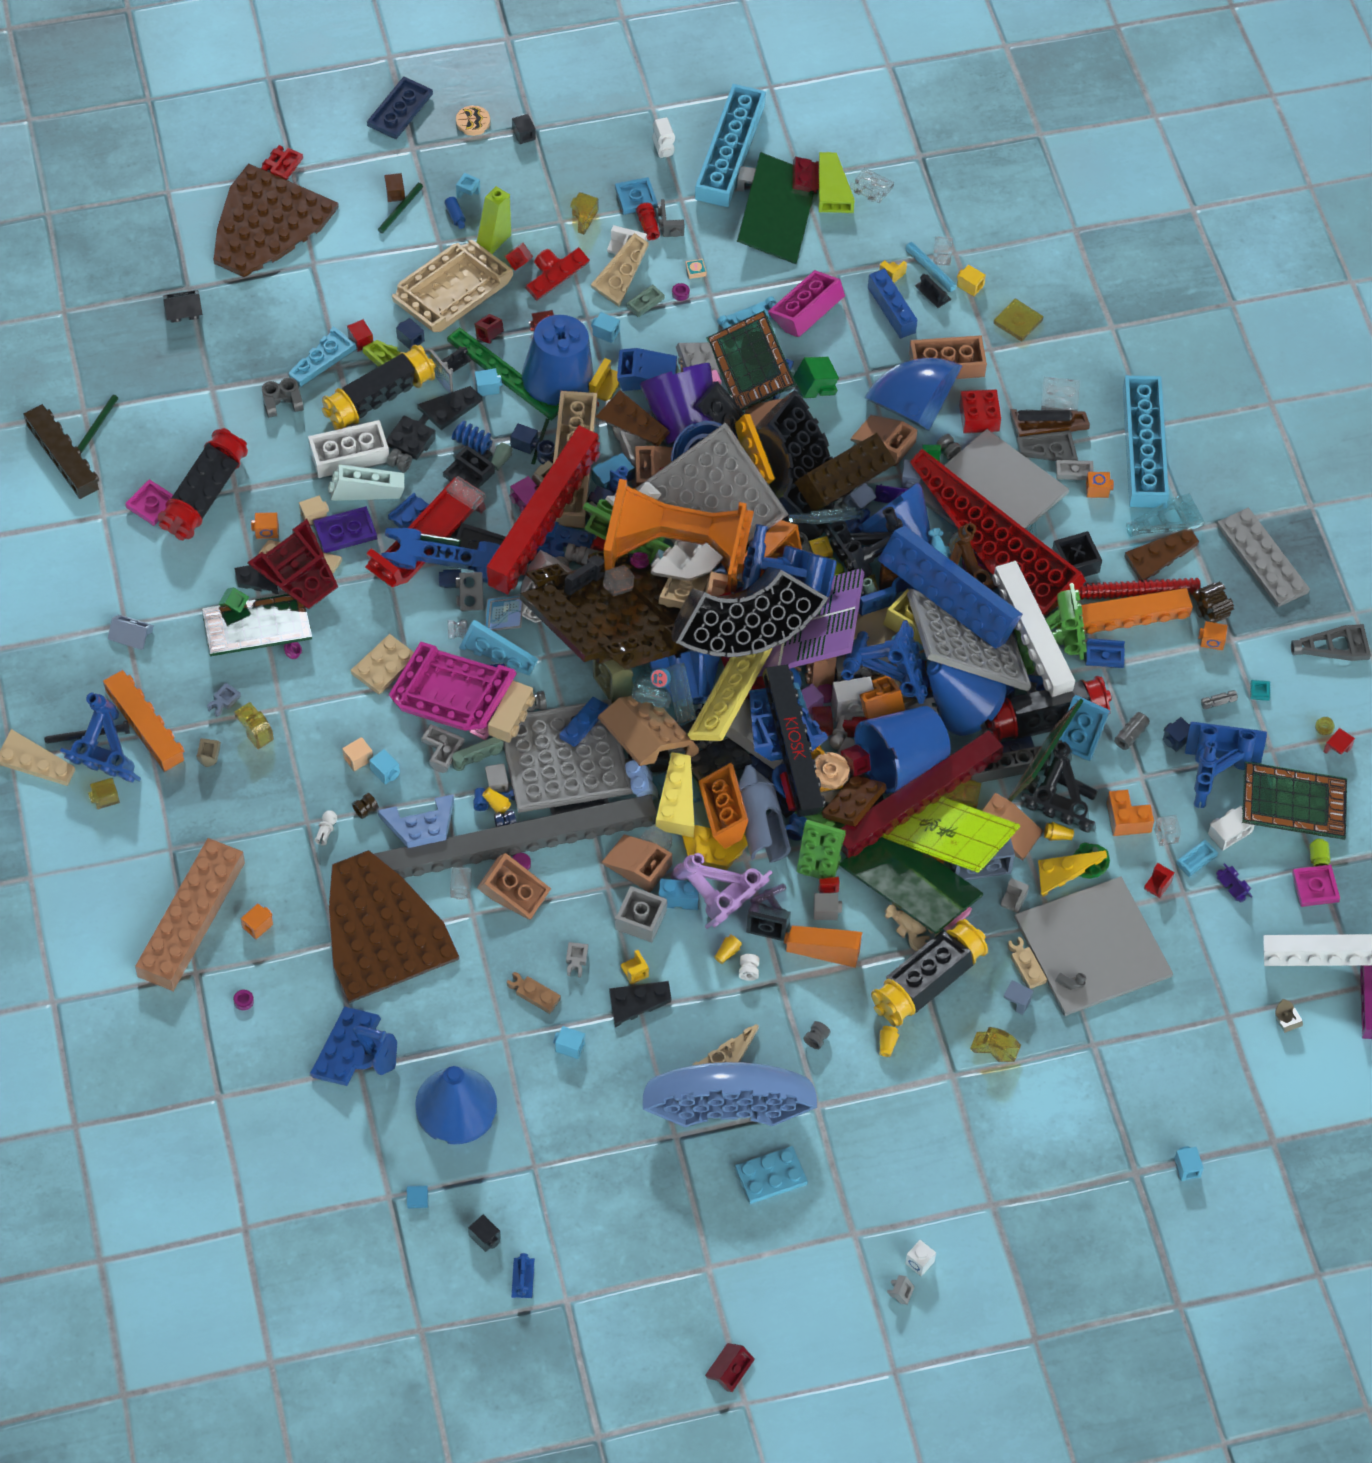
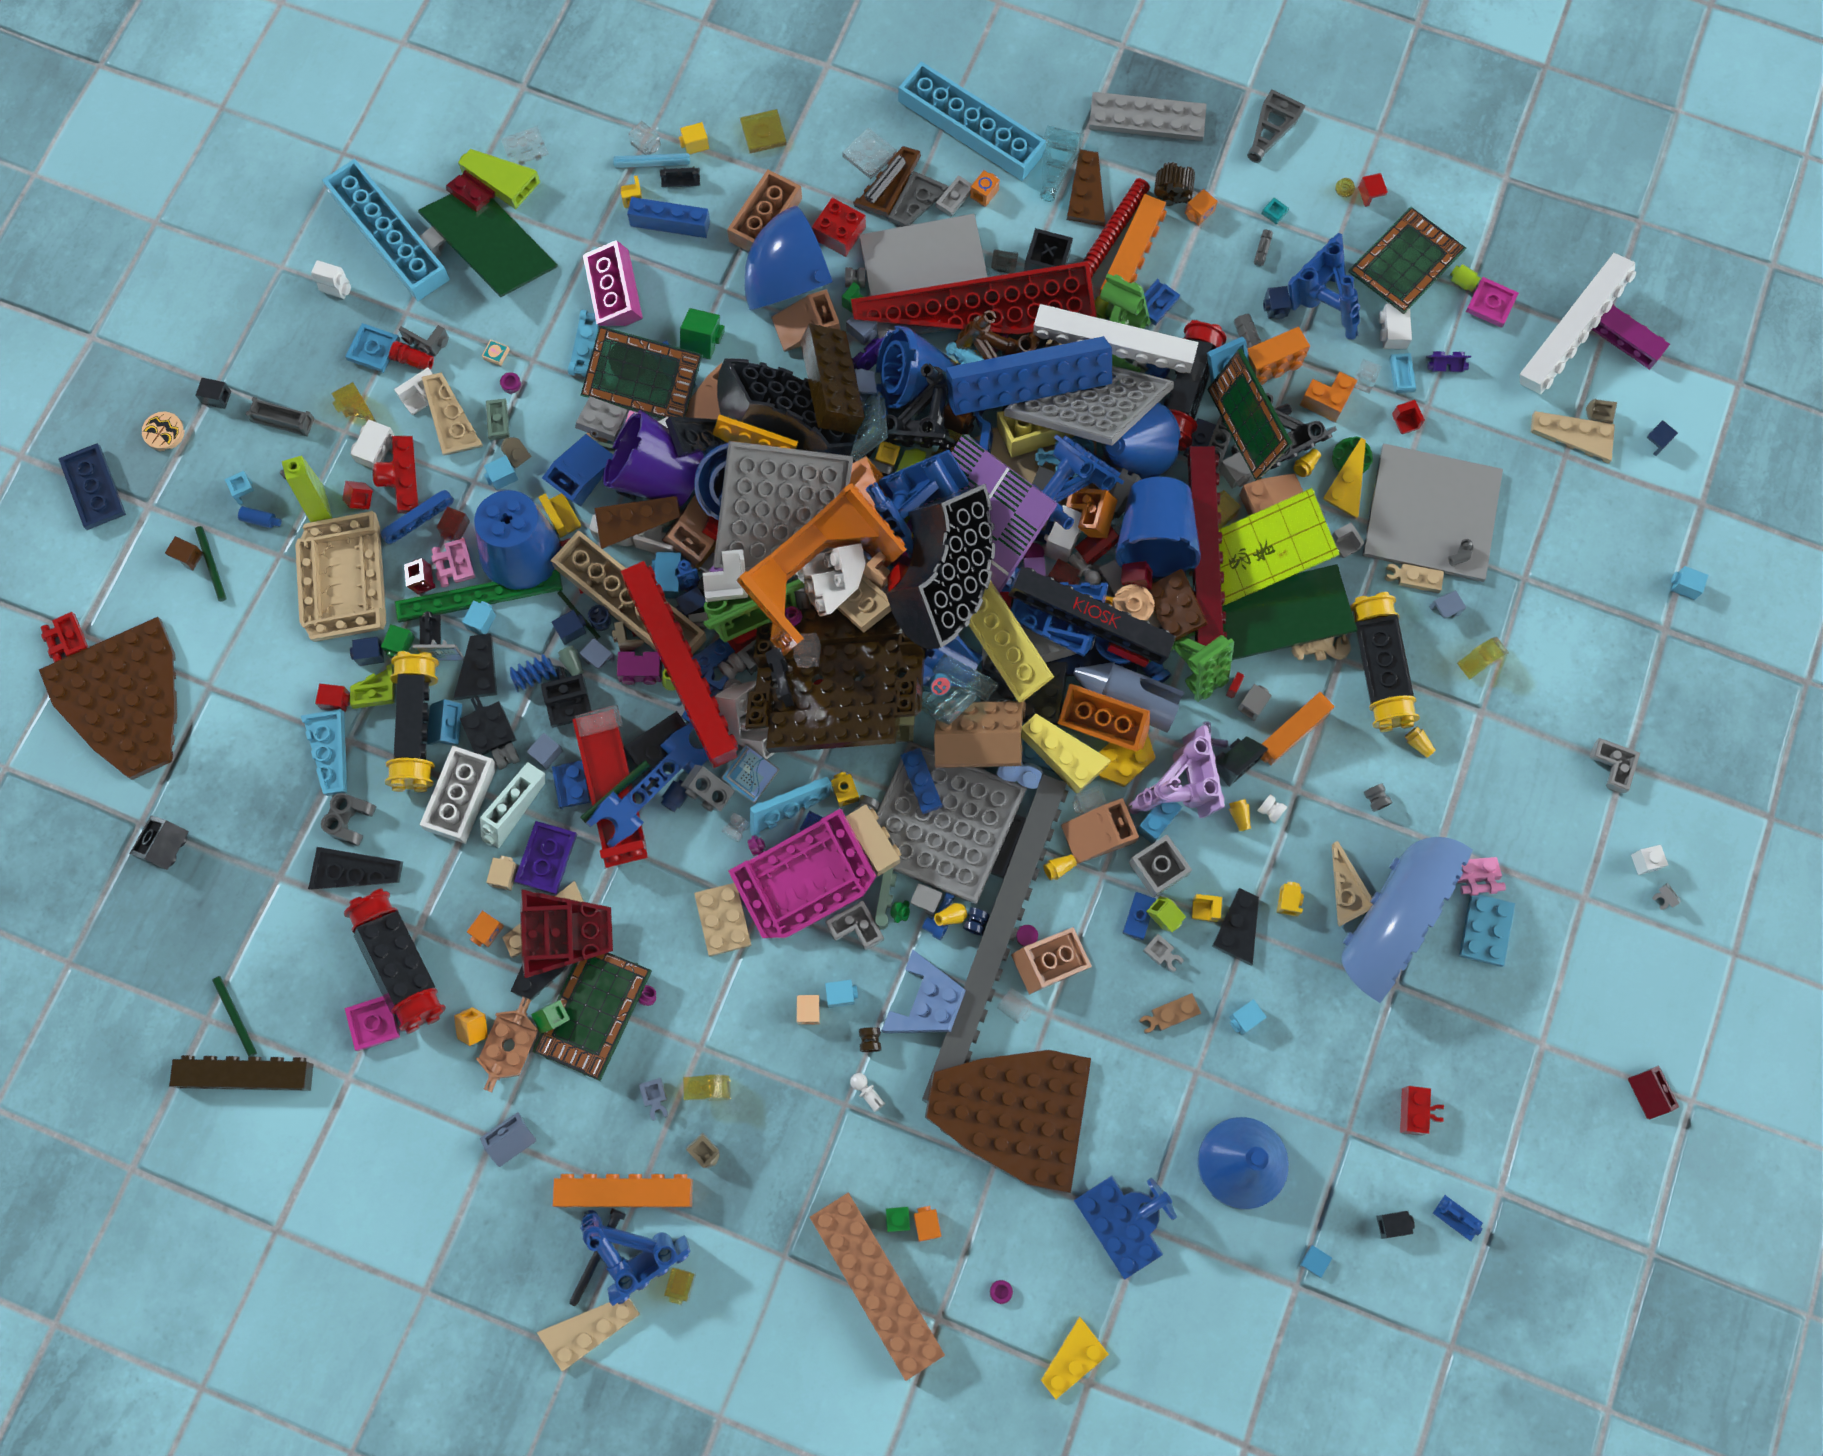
camera: 55 degrees left, 15 degrees up
(192, 560) = (471, 1026): none -> light orange panel
(209, 583) = (507, 1026): none -> nougat plate
(228, 1075) = (1074, 1359): none -> yellow wing
(246, 898) = (897, 1219): none -> green brick
(247, 422) = (348, 869): none -> black wing
(394, 411) = (444, 722): none -> dark azure panel
(421, 481) = (545, 751): none -> sand blue panel
(433, 342) = (397, 640): none -> green brick
(454, 648) = (756, 845): none -> magenta plate
(476, 763) = (900, 911): none -> green plate
(514, 295) = (417, 517): none -> blue beam
(517, 465) = (596, 654): none -> sand blue panel
(518, 346) = (459, 560): none -> bright pink plate
(539, 177) = (280, 417): none -> dark grey container
(540, 678) = (846, 796): none -> yellow brick
(563, 240) = (372, 444): none -> white brick
(584, 1198) = (1416, 1111): none -> red brick
(590, 851) = (1058, 867): none -> yellow cone
(594, 927) = (1138, 918): none -> blue plate
(607, 941) = (1166, 914): none -> lime brick
(629, 325) = (515, 451): none -> dark tan plate
(686, 1019) = (1290, 899): none -> yellow brick
(814, 1140) = (1481, 870): none -> bright pink plate
(988, 1195) = (1622, 761): none -> light grey brick
(1007, 783) = (1235, 470): none -> light grey brick
(1049, 533) = (1004, 261): none -> clear smoke tile
(1124, 754) = (1278, 355): none -> orange brick
(1255, 1016) = (1586, 435): none -> tan wing
(1300, 1072) = (1661, 436): none -> dark blue panel

